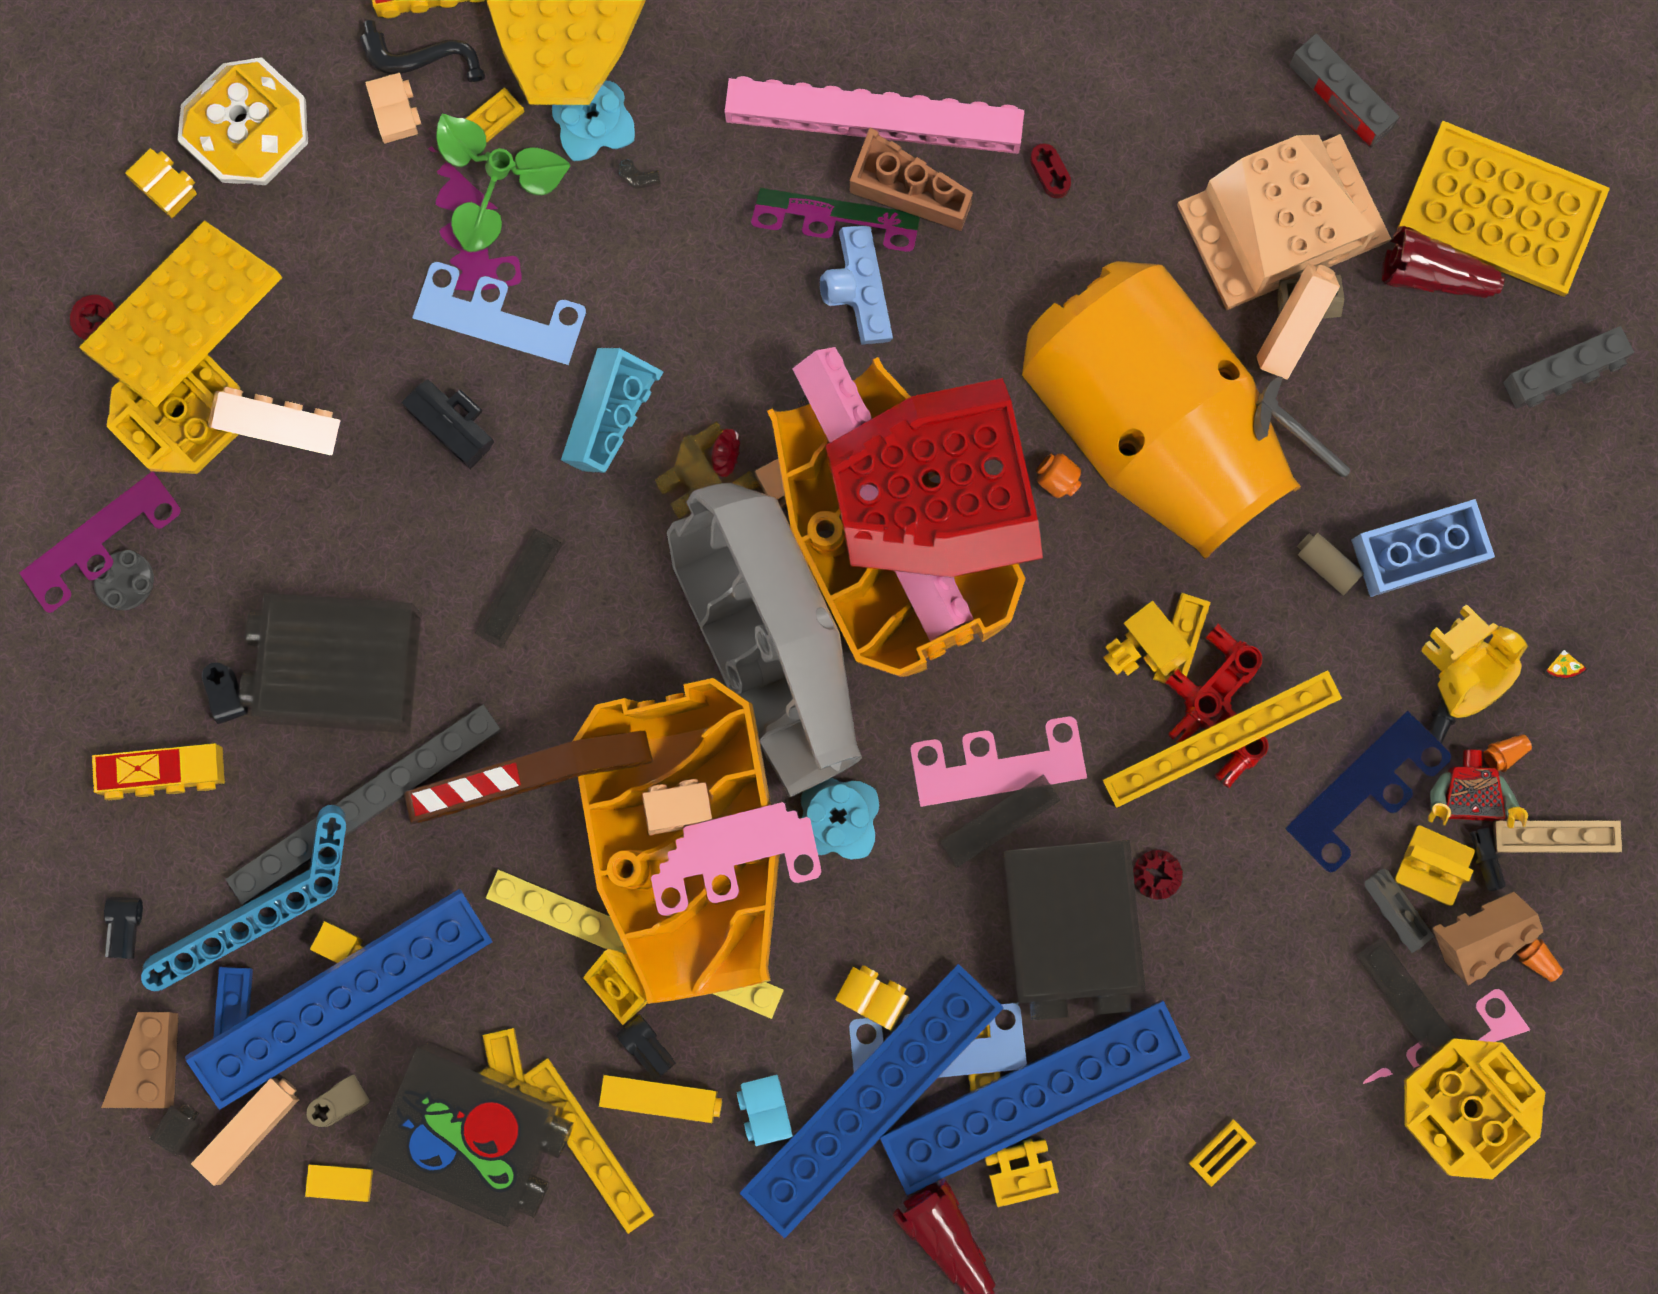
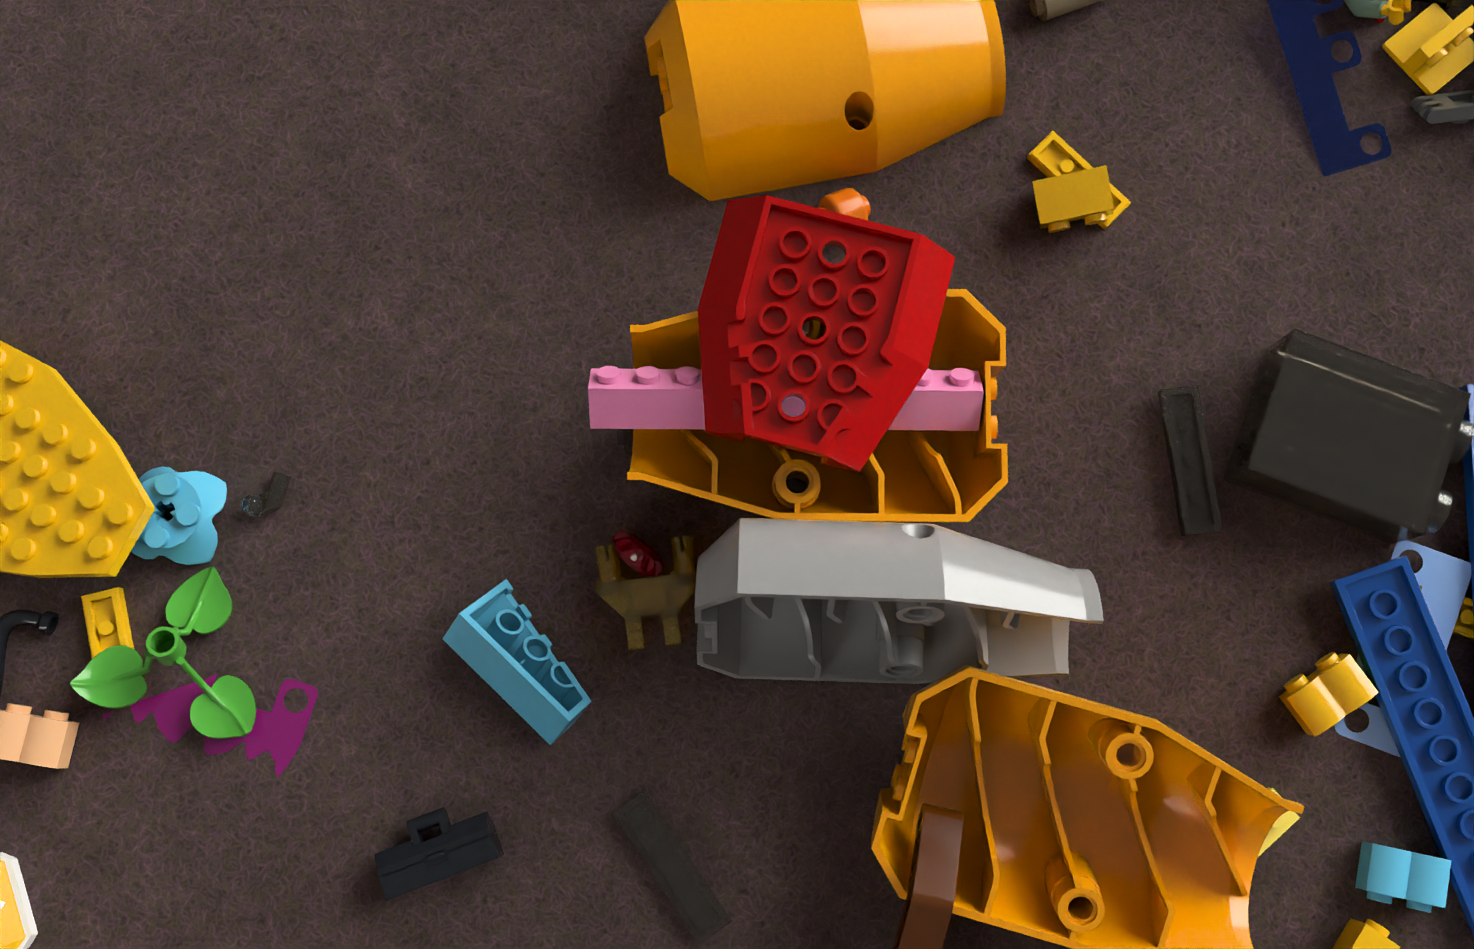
camera: 65 degrees left, 0 degrees up
(489, 323) = (343, 749): light blue piece -> none
(676, 807) = (1041, 812): light nougat brick -> none
(733, 840) = (1120, 764): bright pink piece -> none
(771, 481) = (699, 516): light nougat brick -> none
(830, 210) = (425, 306): piece -> none
(856, 111) = (341, 211): bright pink brick -> none
(857, 834) = (1137, 629): medium azure brick -> none
(859, 285) = (523, 318): light blue plate -> none
(907, 184) = (440, 209): nougat wedge -> none
(992, 775) = (1132, 444): bright pink piece -> none
(1044, 173) = (505, 62): dark red beam -> none
(1122, 656) = (1072, 245): yellow gear -> none
(1144, 880) = (1314, 308): dark red gear -> none
(1219, 691) = (1187, 180): red pin -> none
(1222, 738) = (1218, 182): yellow plate -> none

